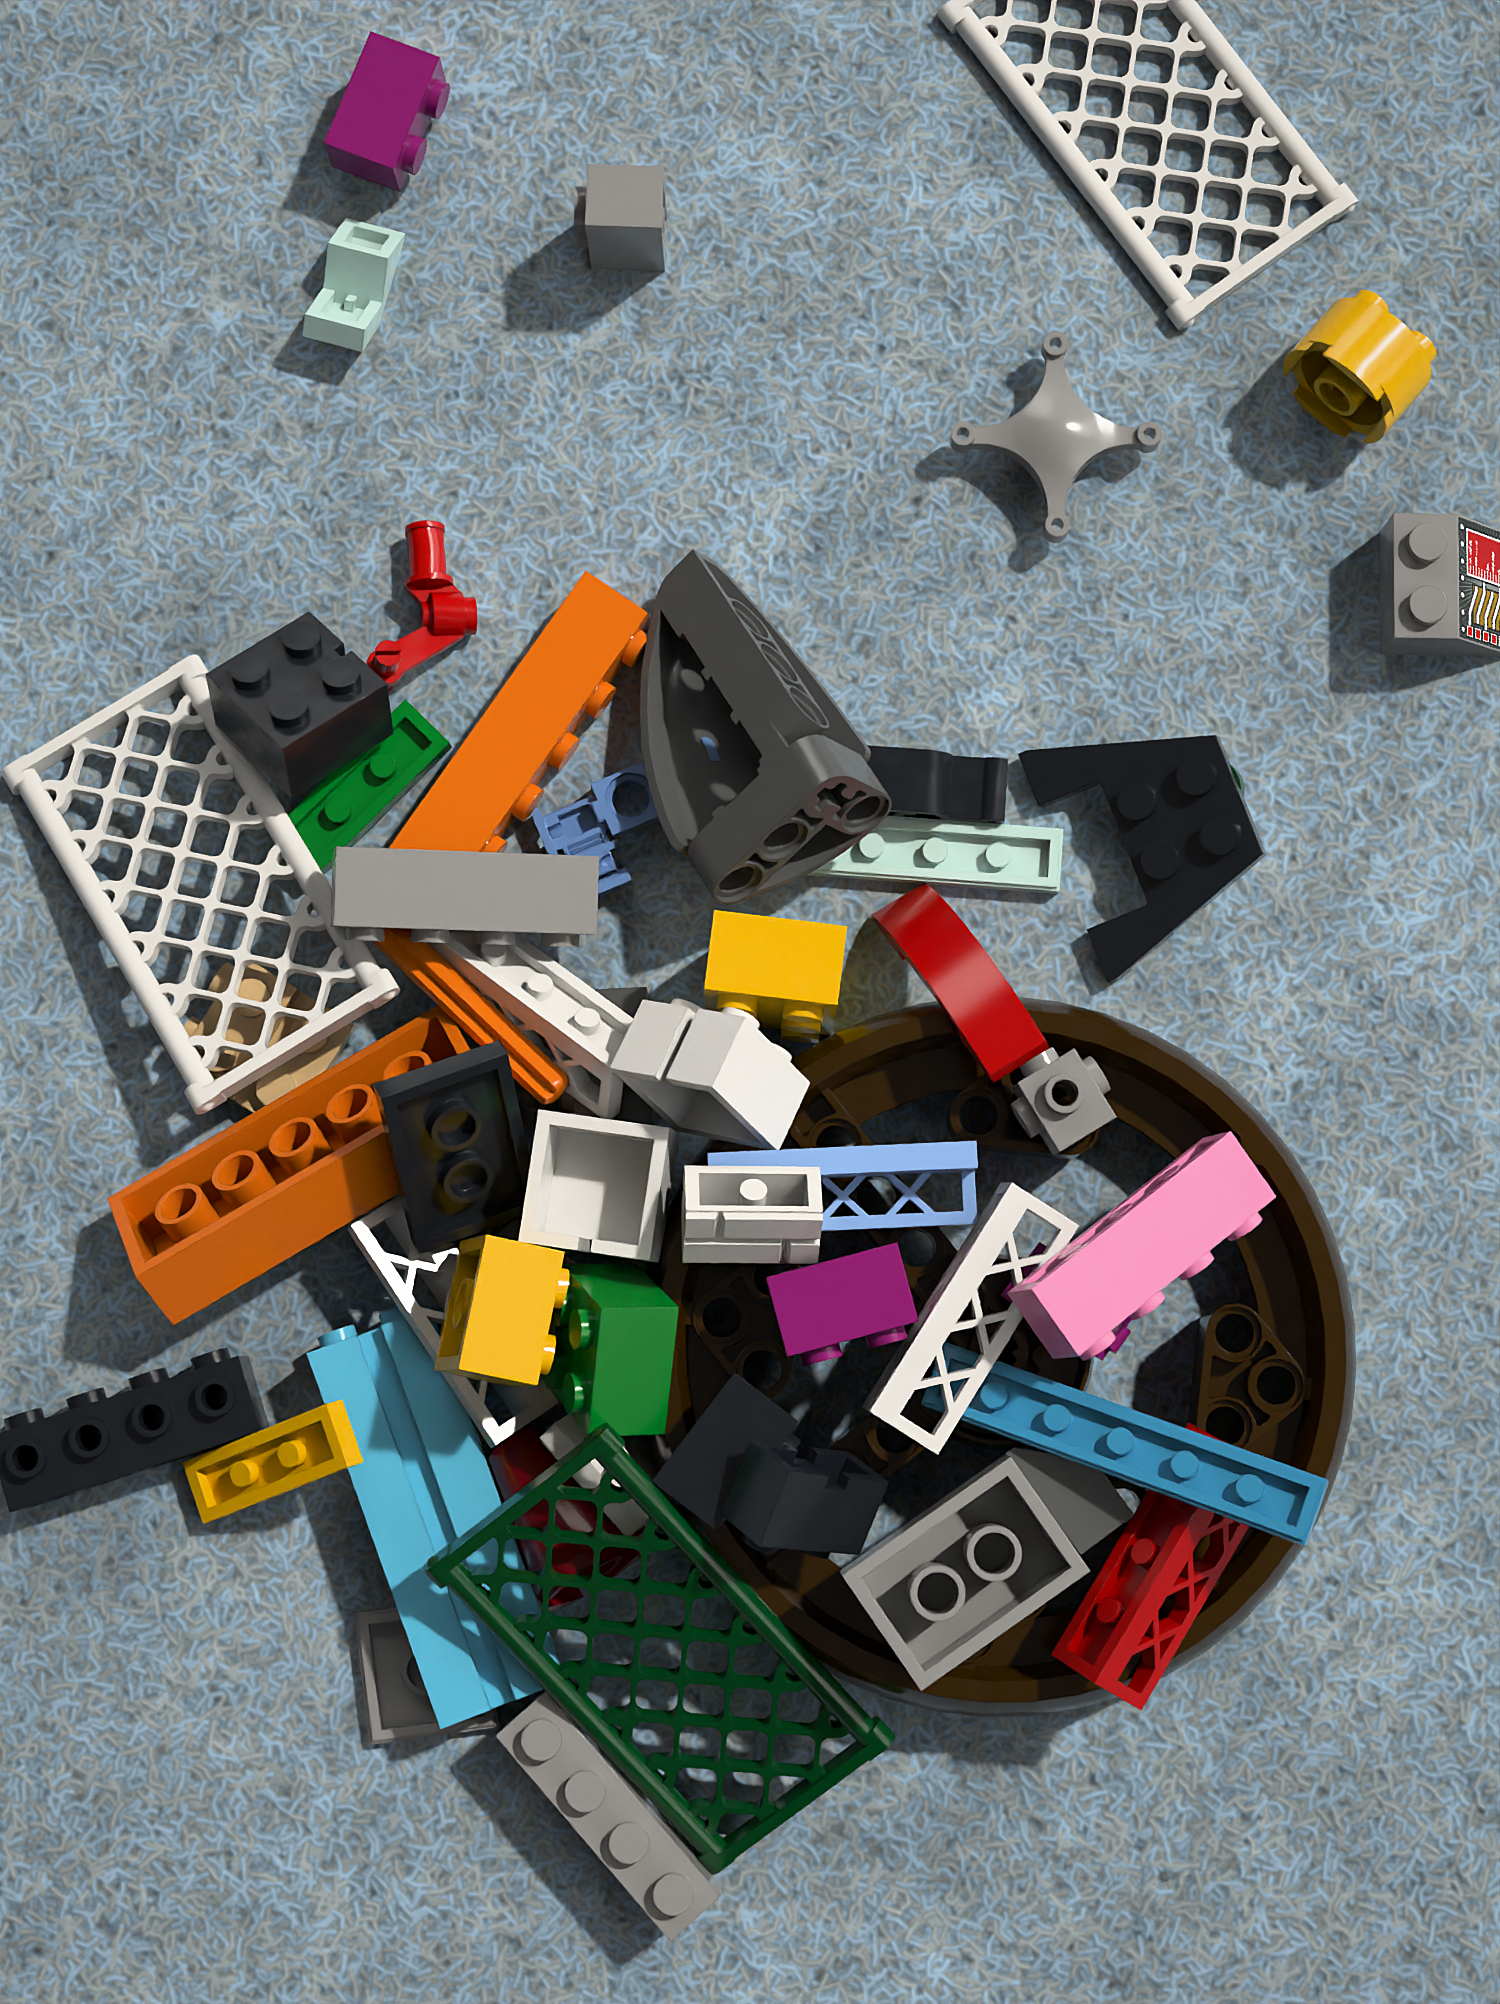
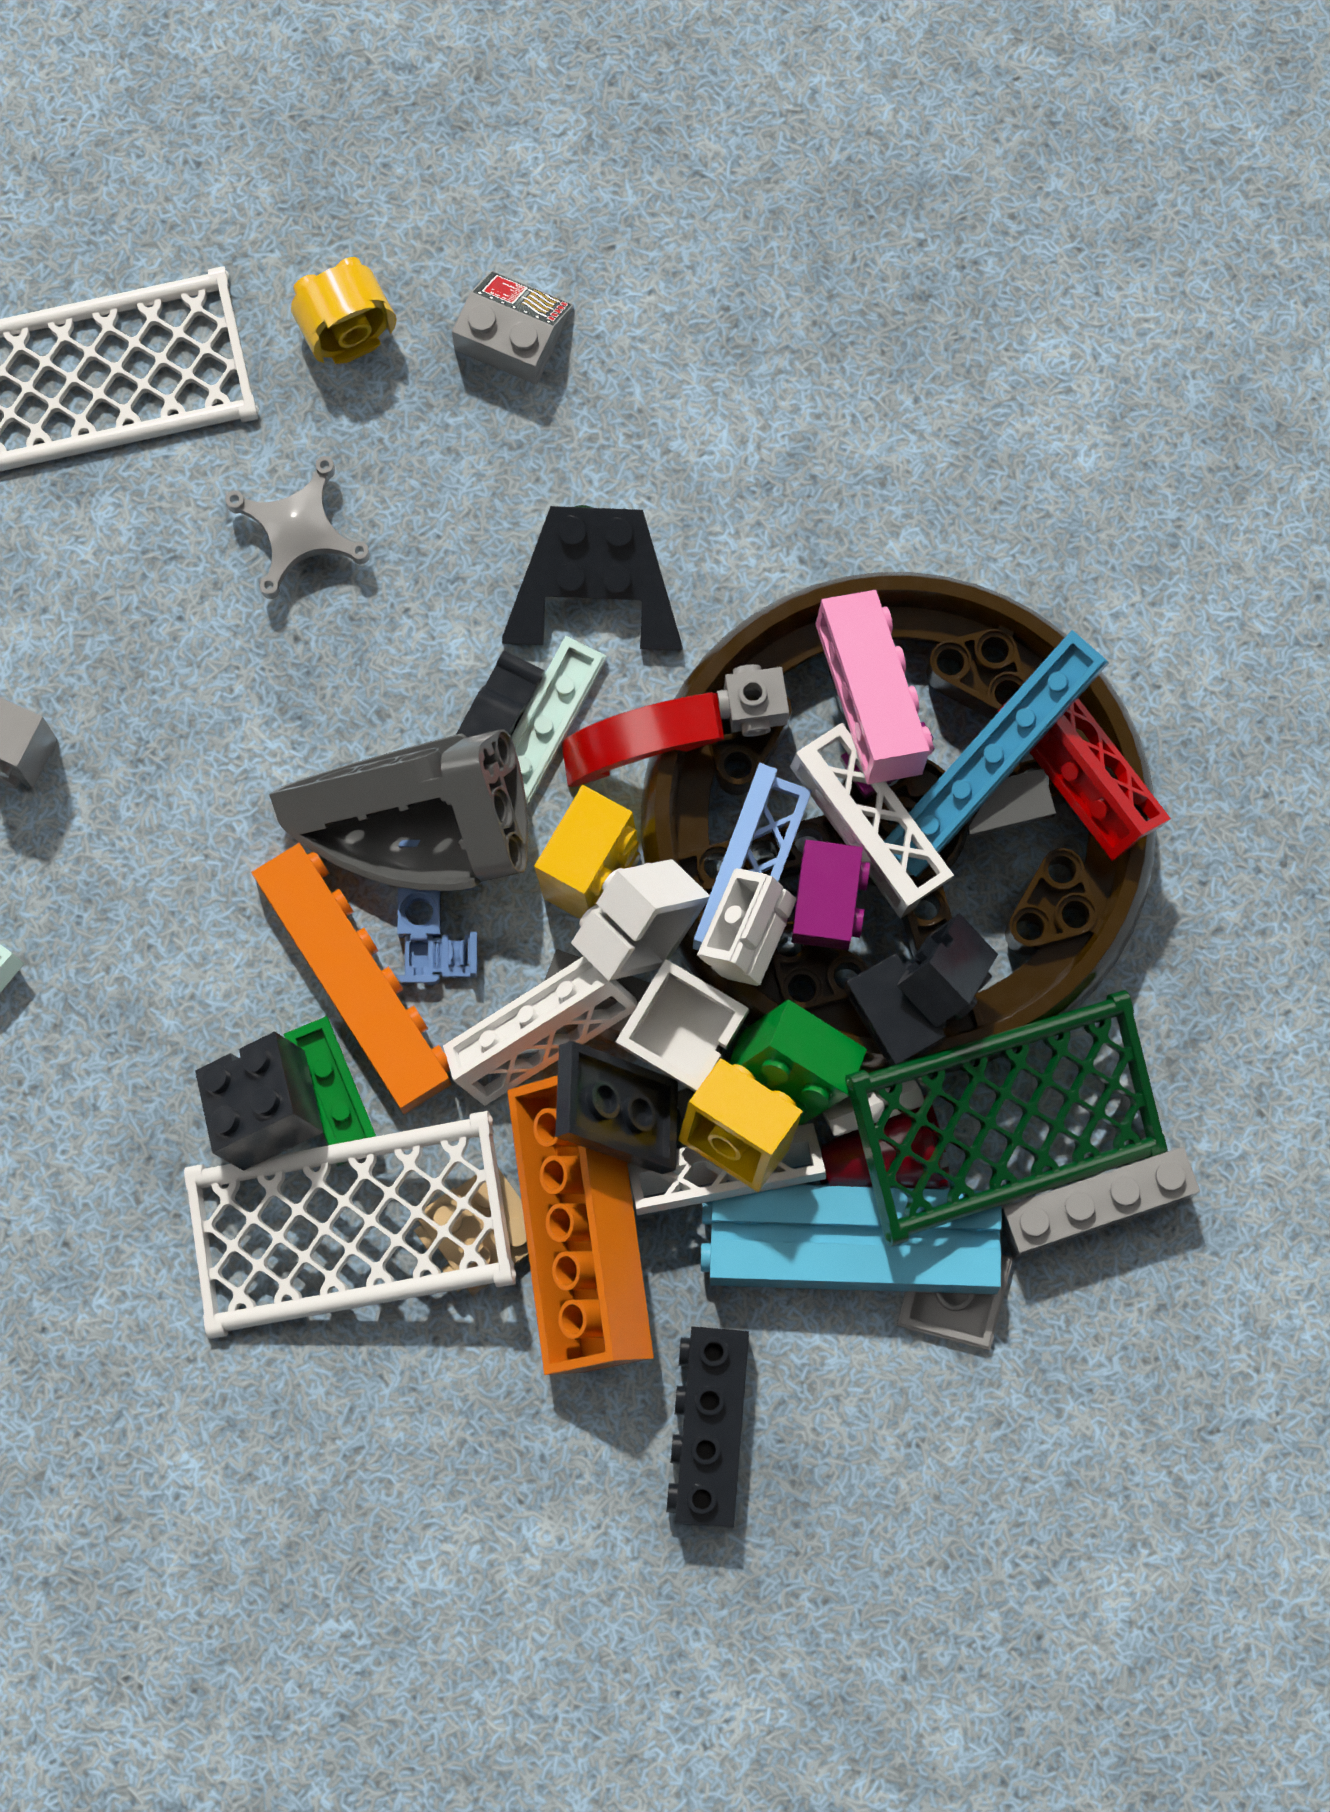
camera: 70 degrees left, 5 degrees down
(273, 1461) = (774, 1331): yellow plate -> none
(443, 609) = (232, 983): red pin -> none
(464, 892) = (441, 1039): light grey brick -> none
(474, 1013) = (514, 1073): orange axle -> none
(964, 1571) = (1036, 889): light grey brick -> none

